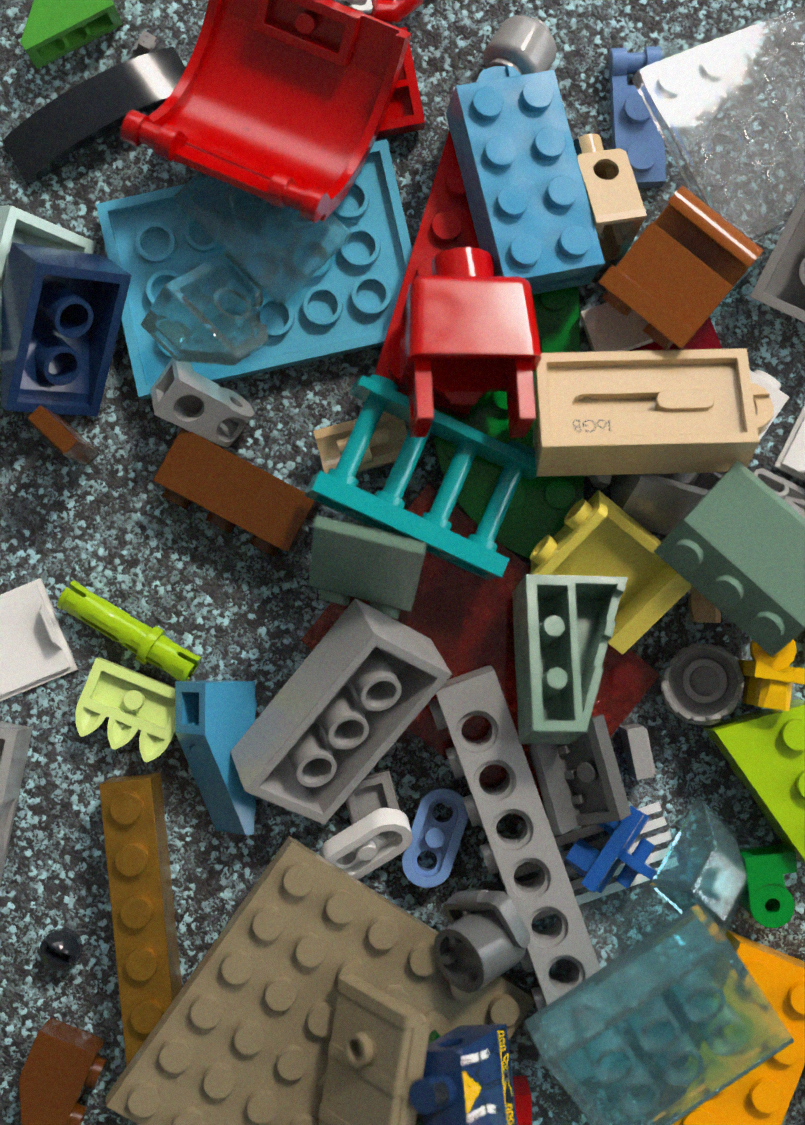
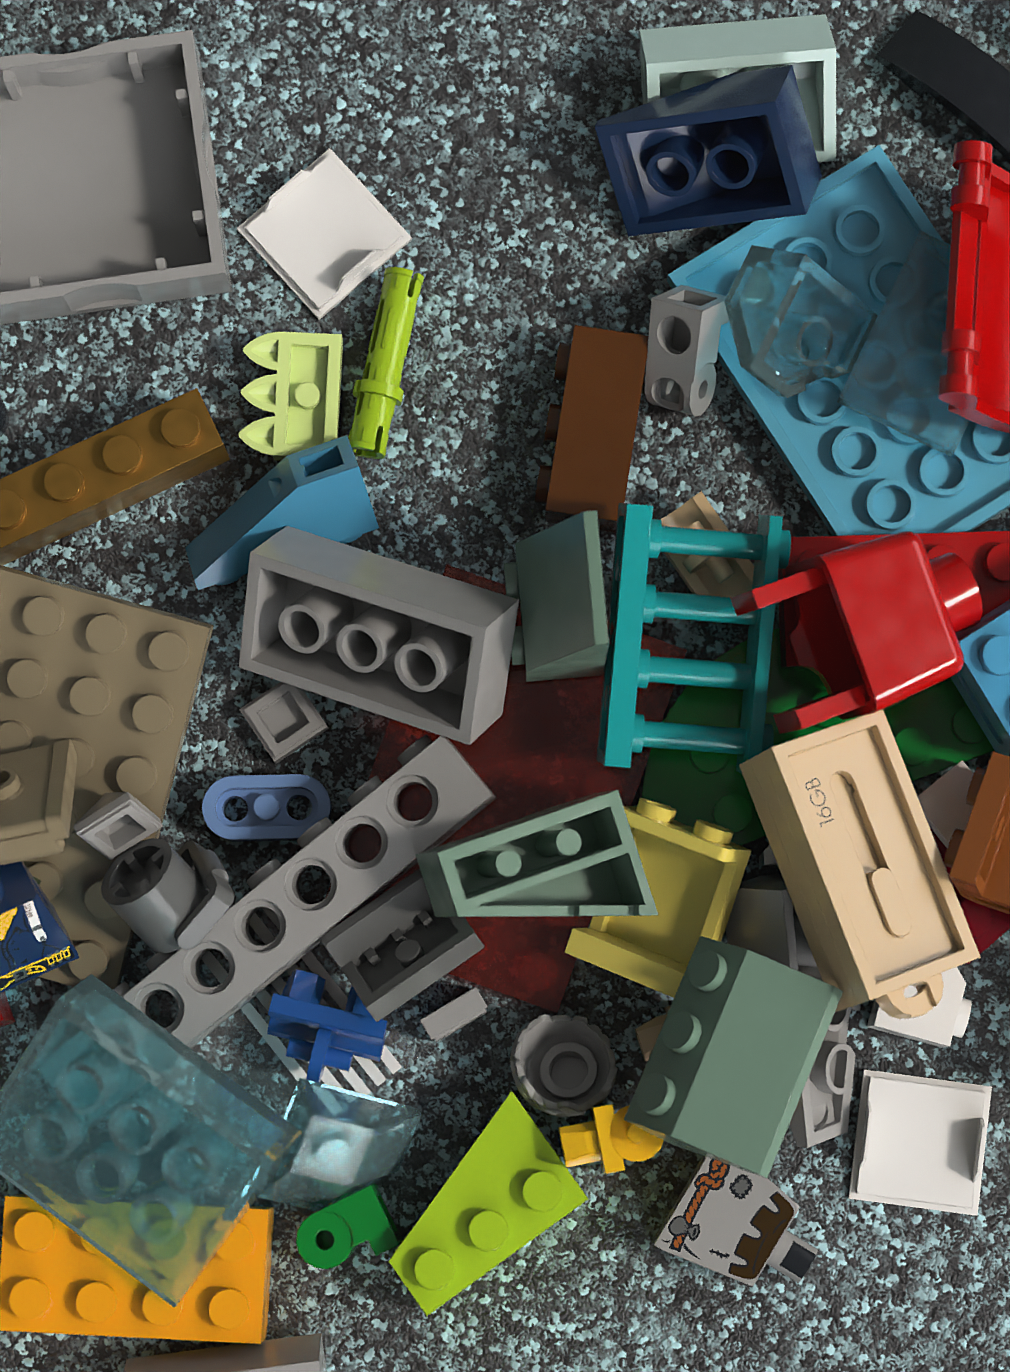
camera: 70 degrees right, 5 degrees down
(62, 436) = (588, 203): reddish brown tile -> none
(369, 842) = (235, 730): white plate -> none
(415, 963) = (116, 823): none -> light grey slope

